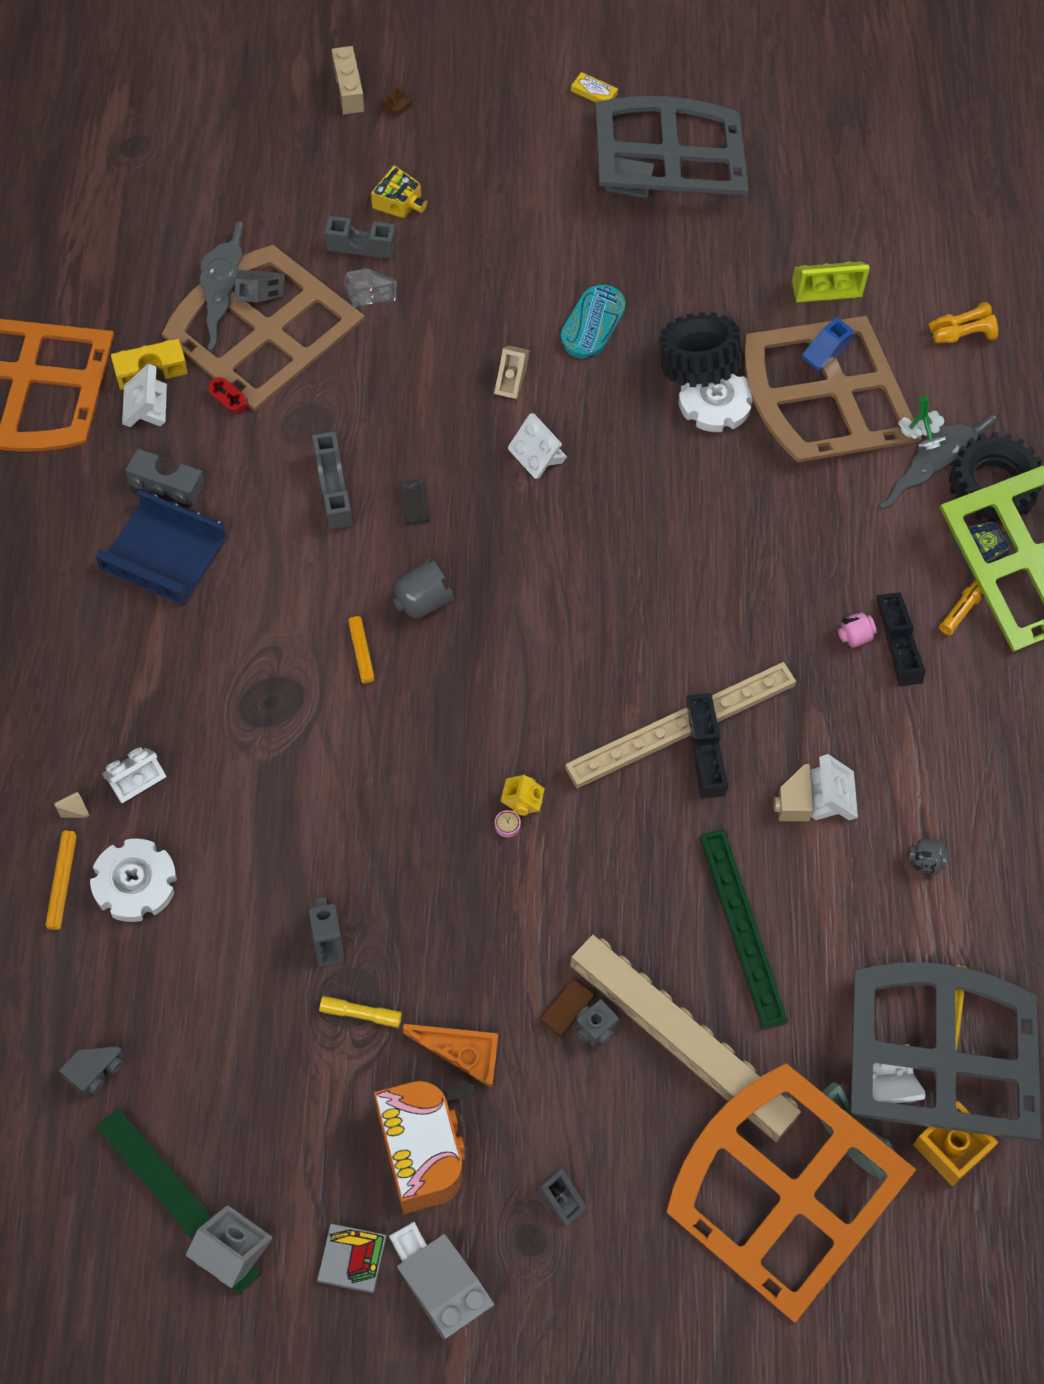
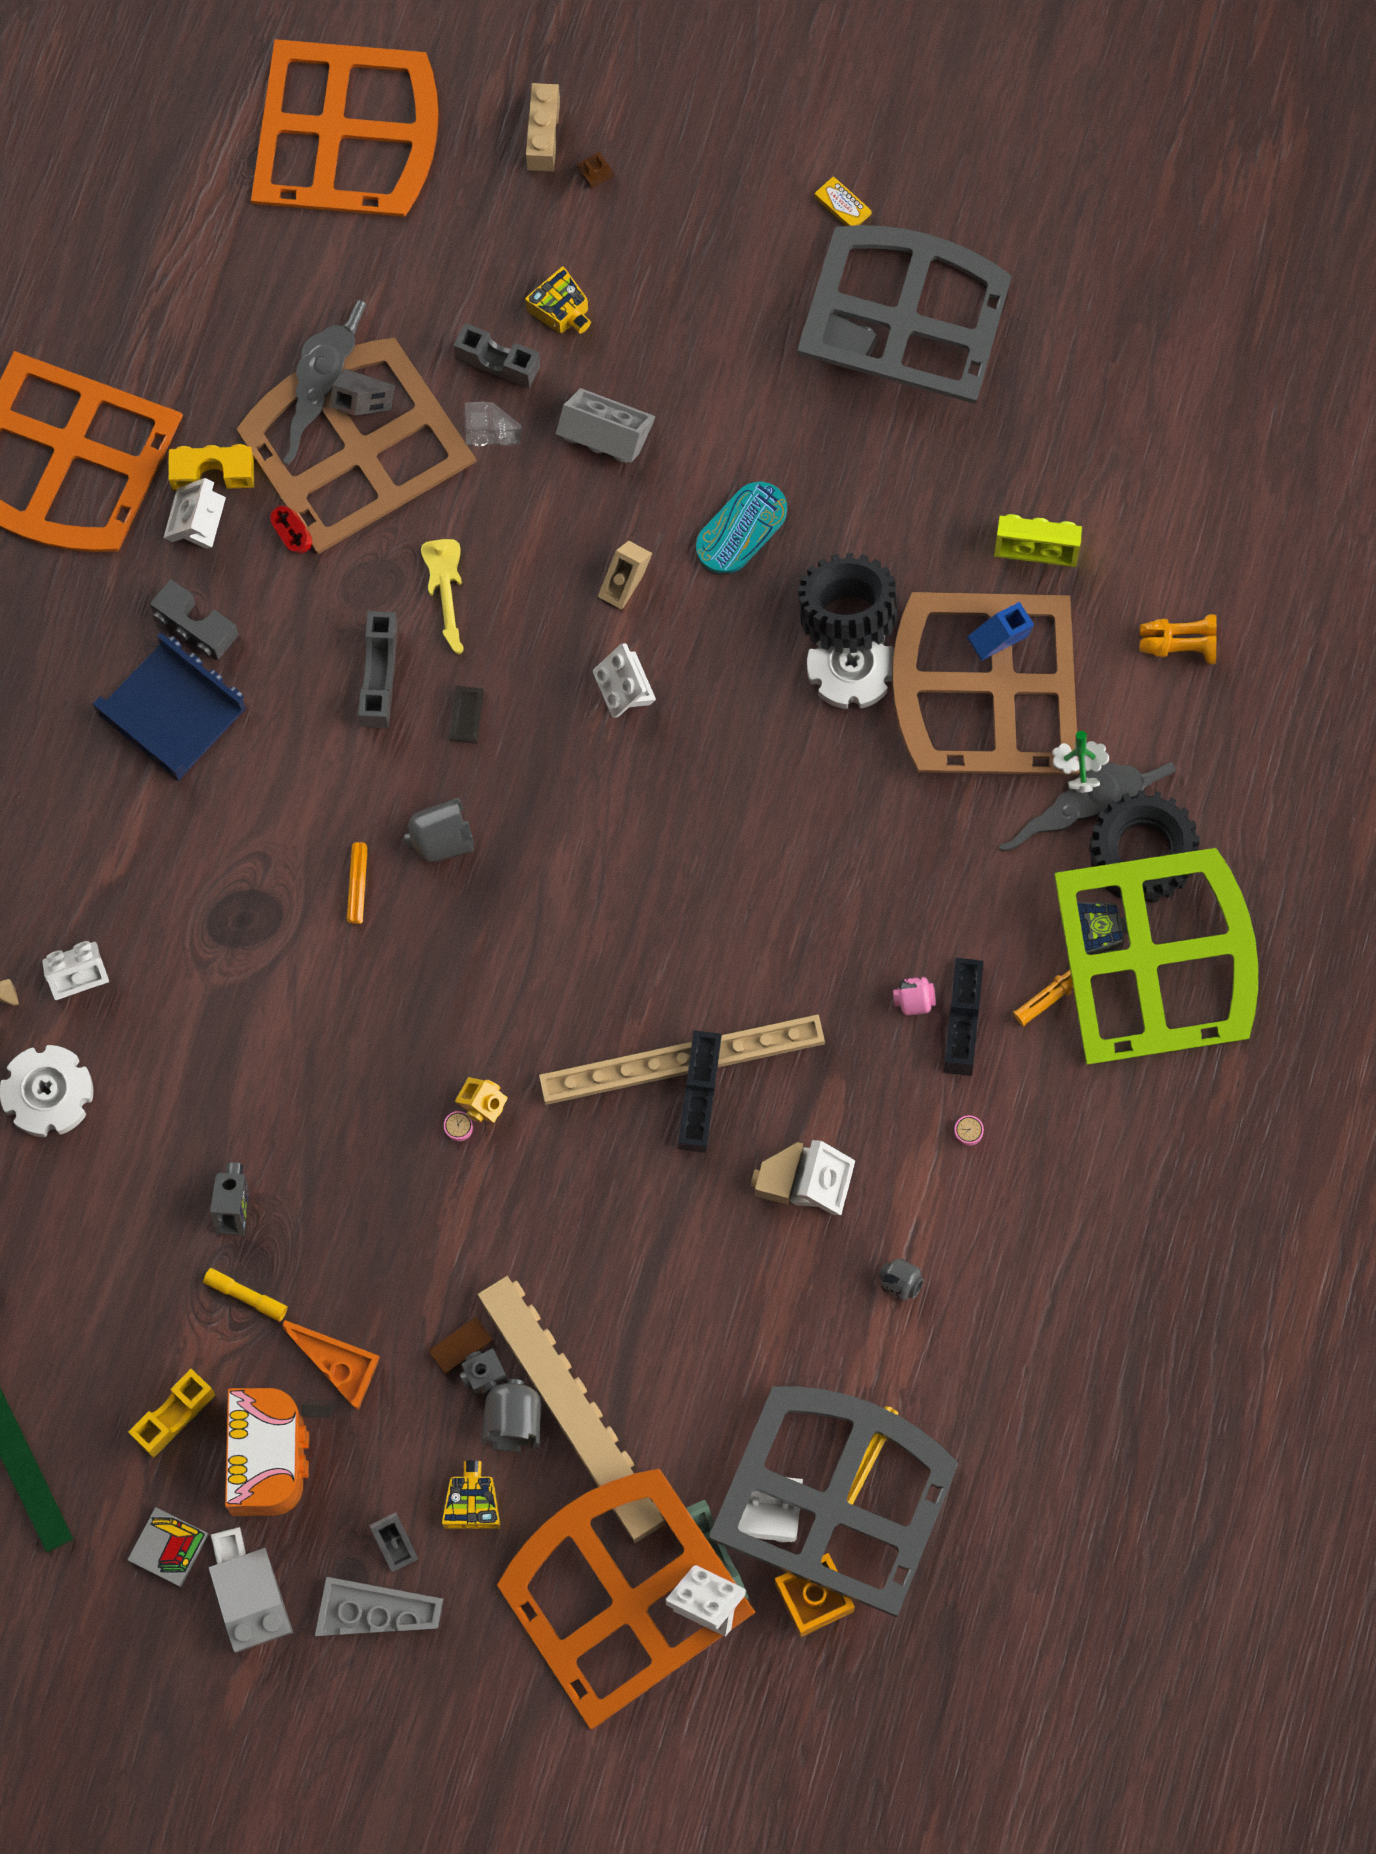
camera: 20 degrees right, 10 degrees up
(181, 113) = (333, 127): none -> orange window
(228, 1246) = (47, 1503): light grey slope -> none
(330, 1125) = (184, 1403): none -> yellow arch
(360, 394) = (442, 561): none -> light yellow piece
(461, 271) = (604, 425): none -> light grey slope
(555, 1265) = (367, 1608): none -> light grey wing
(621, 1141) = (471, 1501): none -> torso
(635, 1056) = (512, 1417): none -> dark grey cylinder
(743, 930) = (674, 1307): dark green tile -> none
(872, 1169) = (706, 1599): none -> white bracket
(938, 725) = (968, 1130): none -> tile

